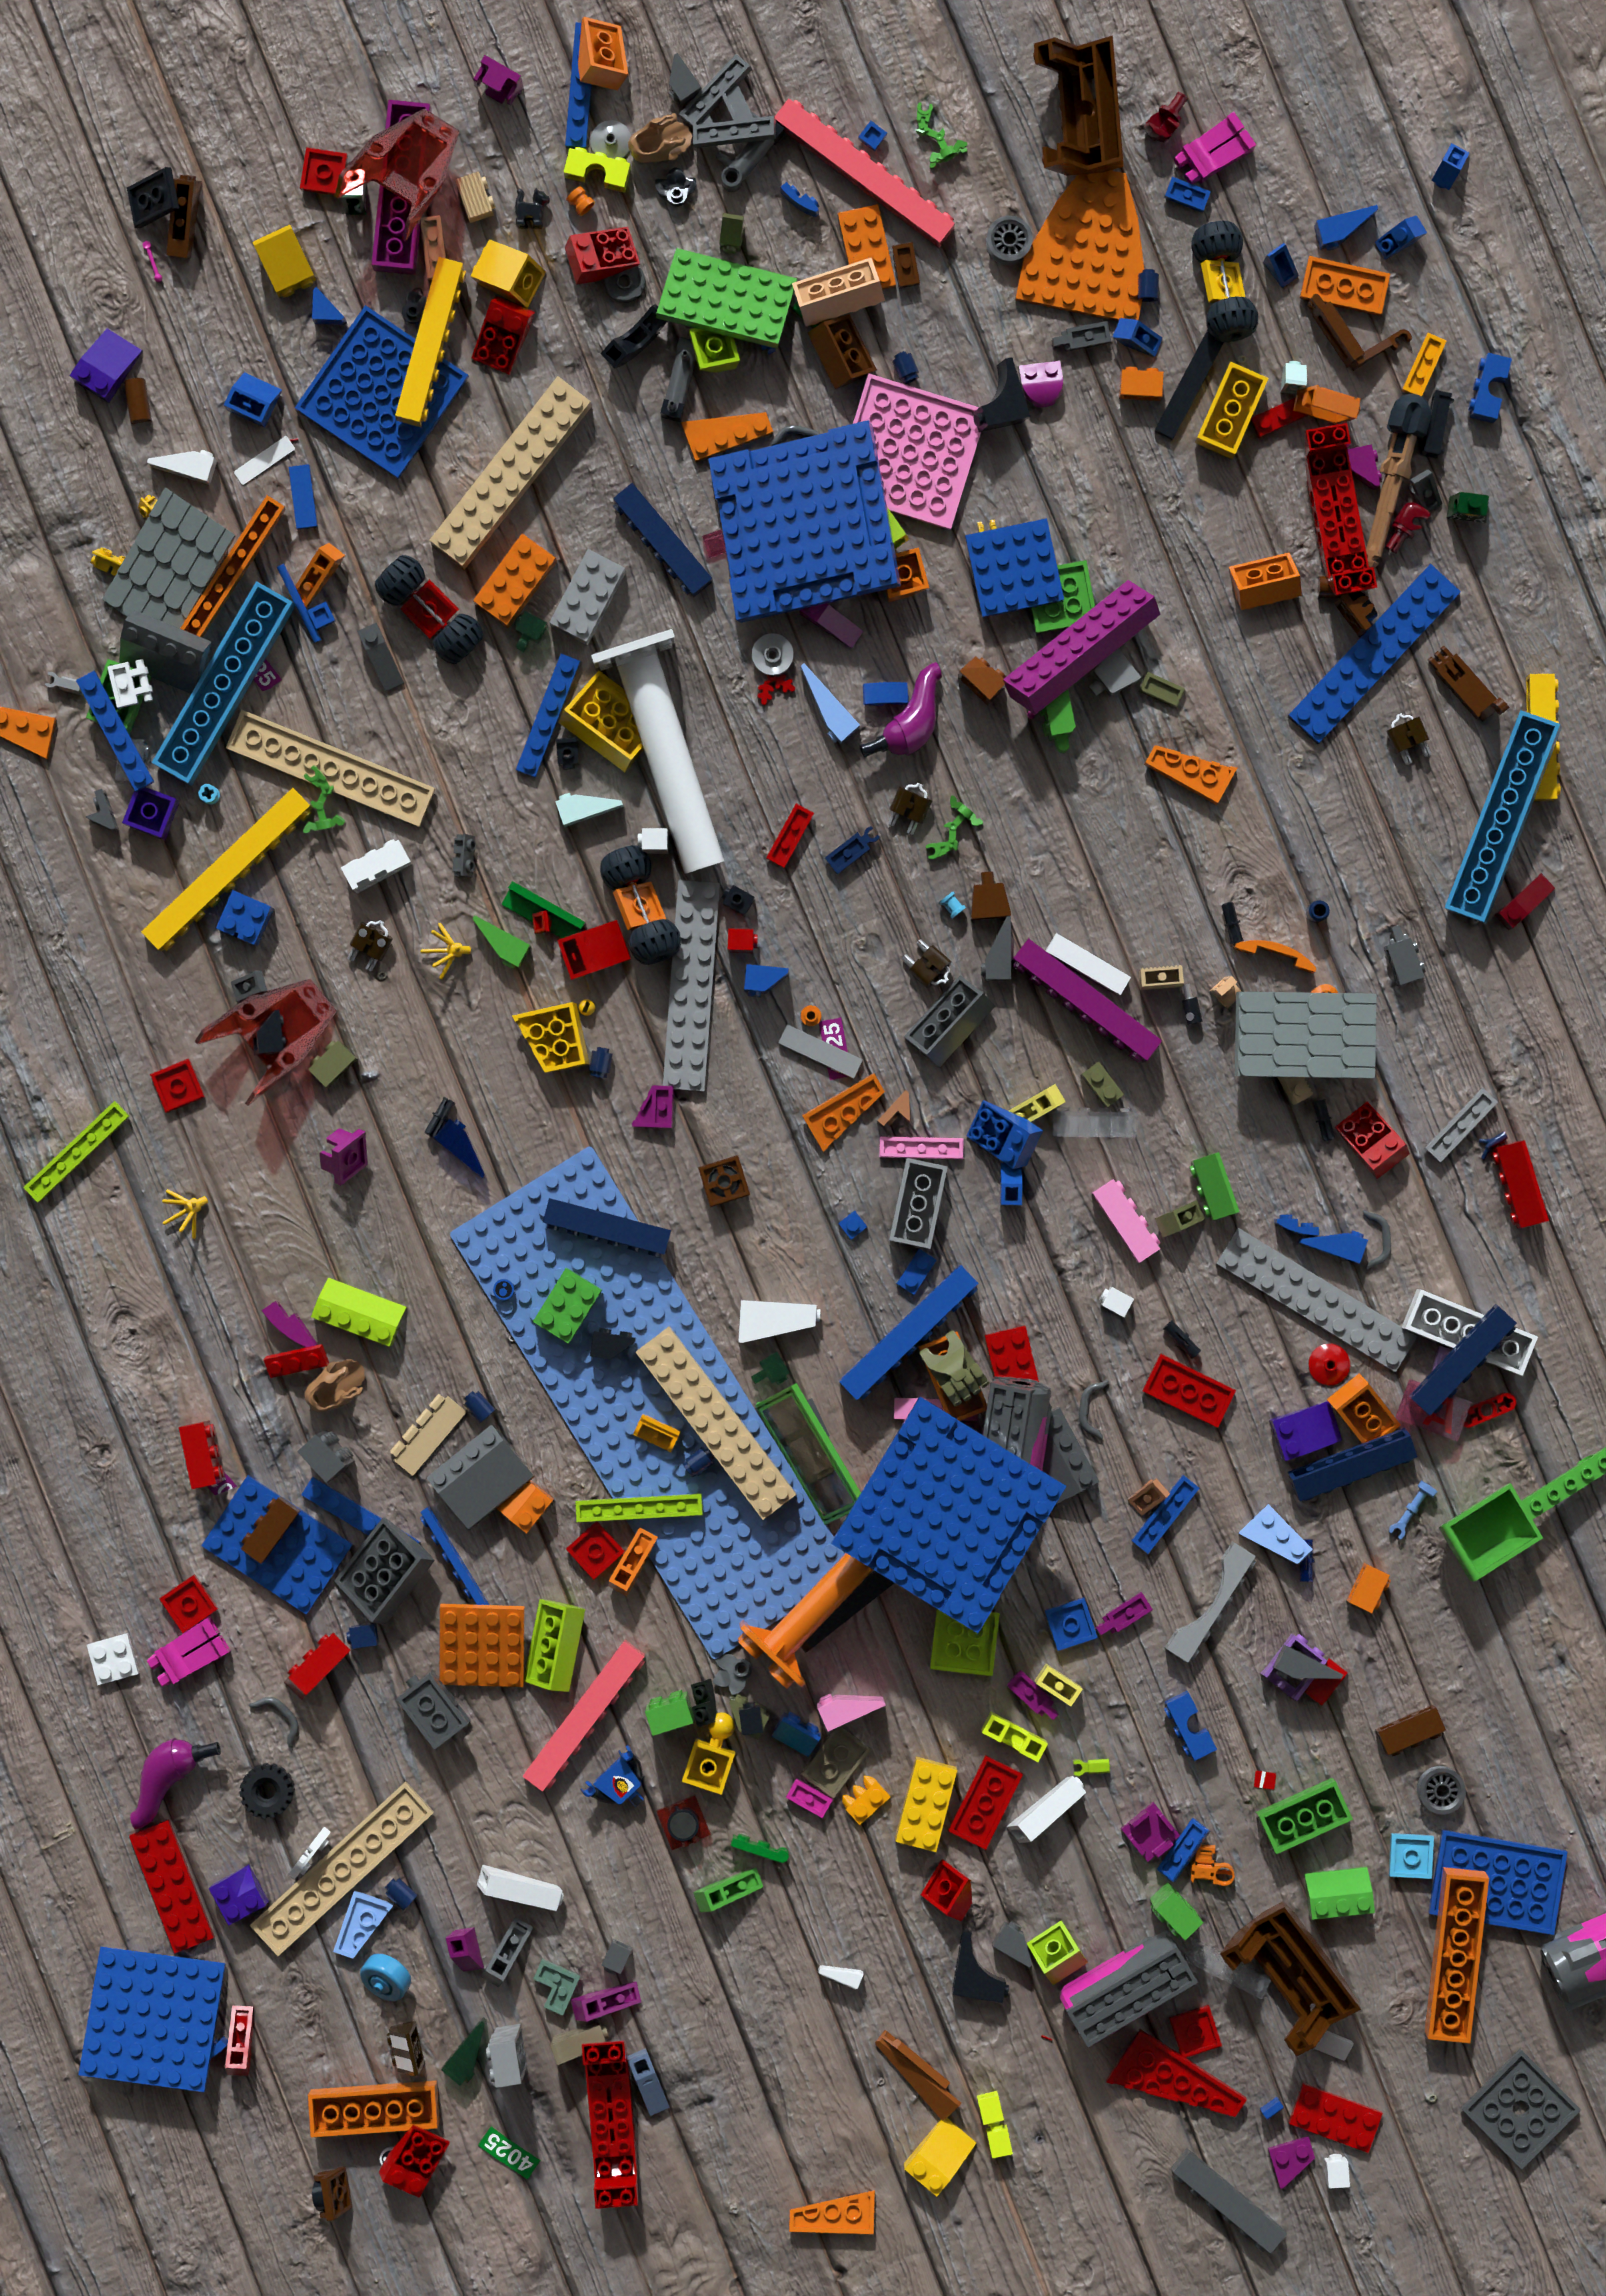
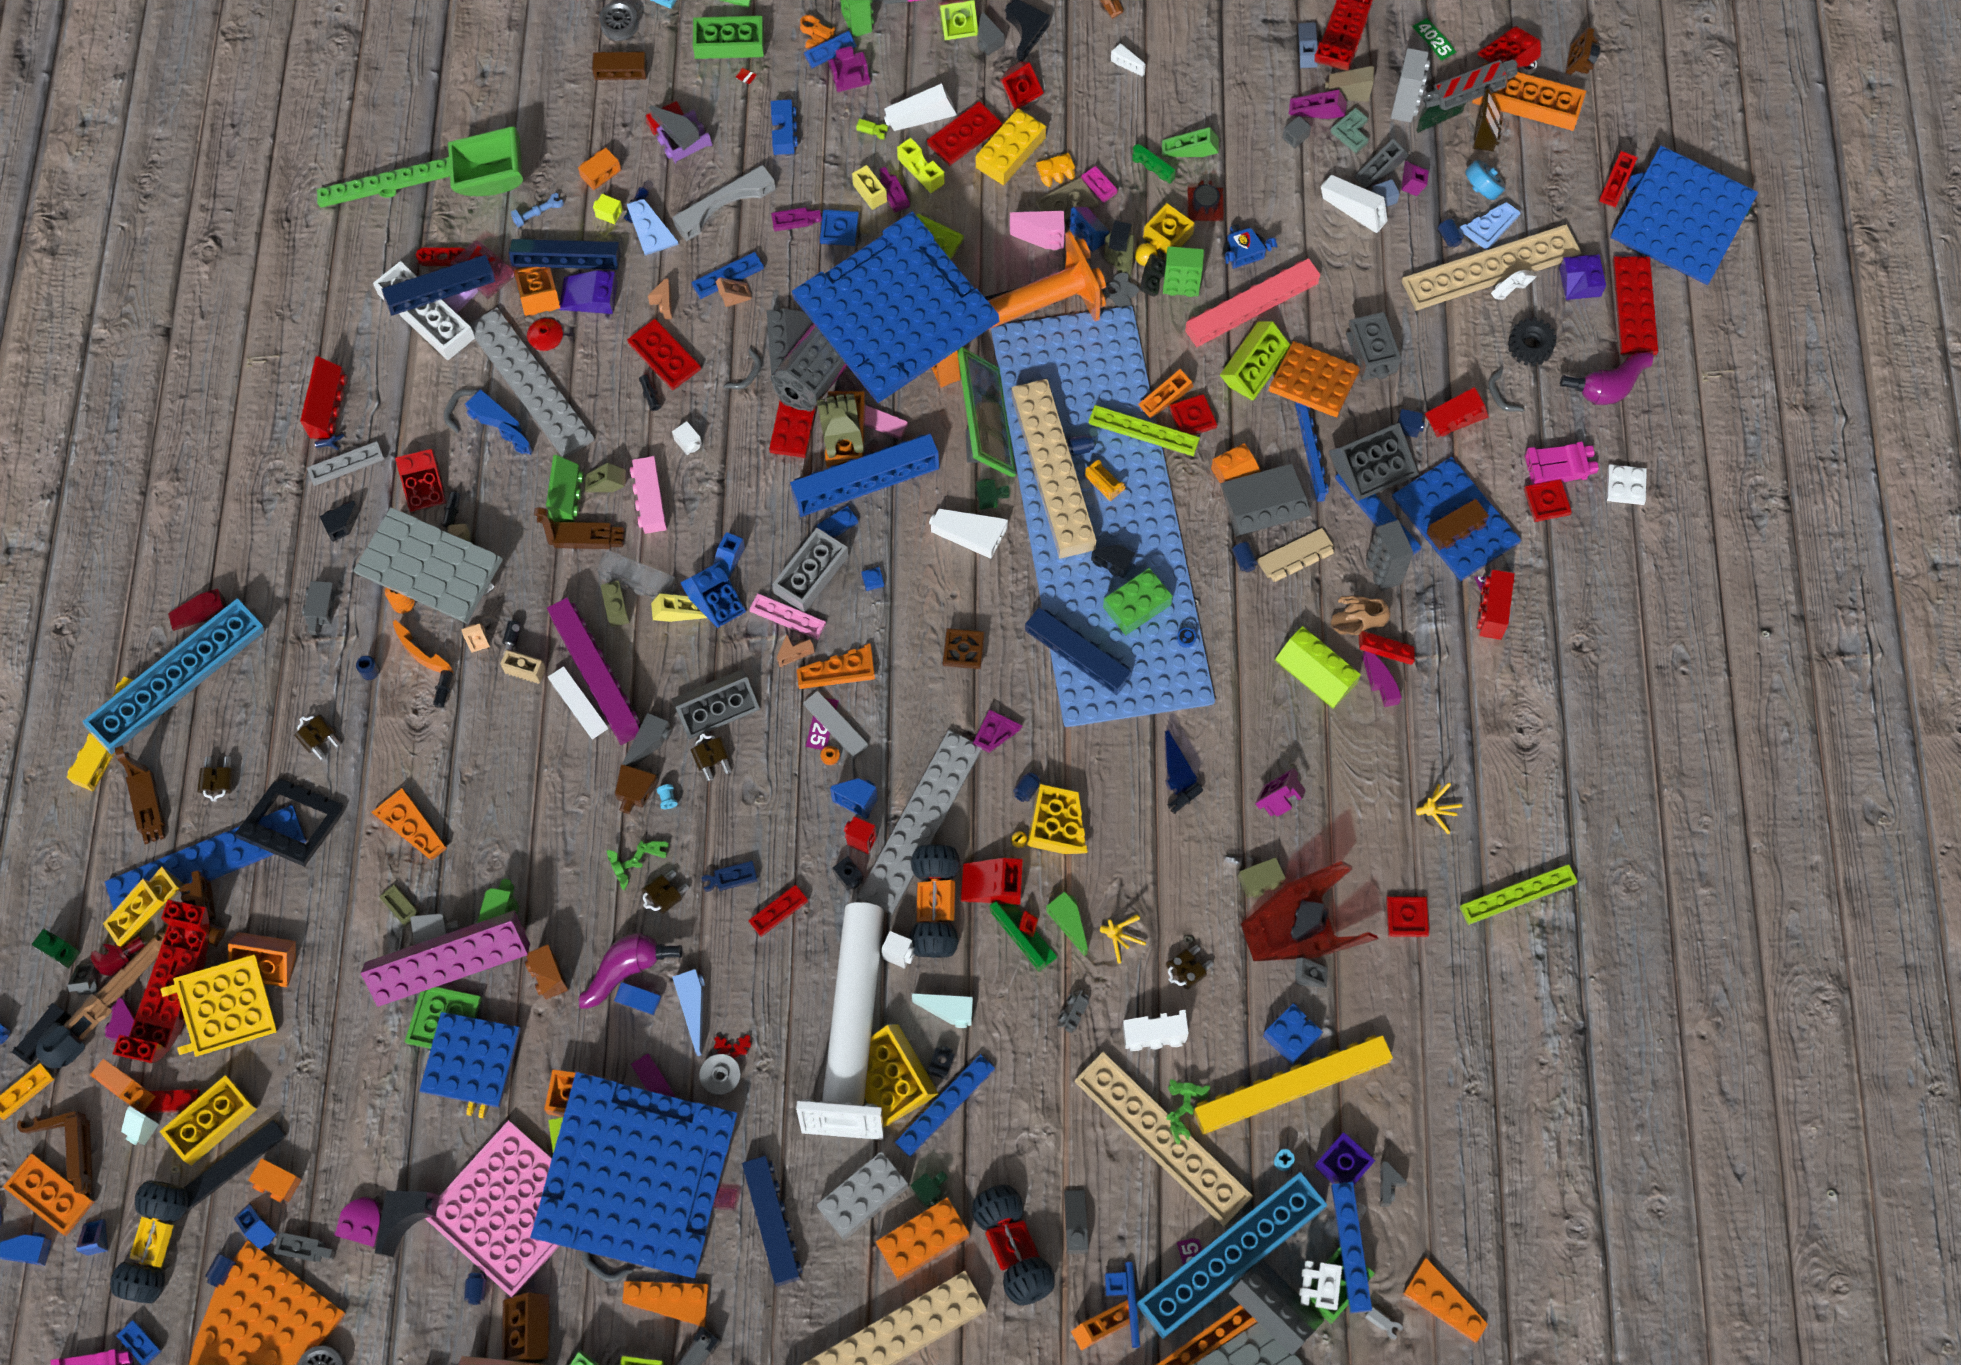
camera: 150 degrees left, 20 degrees down
(439, 2086) = (1471, 85): none -> dark grey hinge
(490, 1913) = (1388, 191): none -> sand blue brick
(1174, 1147) = (579, 534): none -> reddish brown hinge
(1222, 1461) = (662, 296): none -> nougat slope
(1274, 517) = (223, 1005): none -> yellow plate
(1309, 694) = (281, 844): none -> black hinge
(1334, 822) = (315, 734): none -> dark brown piece
(1335, 1541) = (607, 209): none -> neon yellow brick
(1405, 580) = (142, 906): none -> yellow slope
(1431, 1057) = (340, 520): none -> black slope

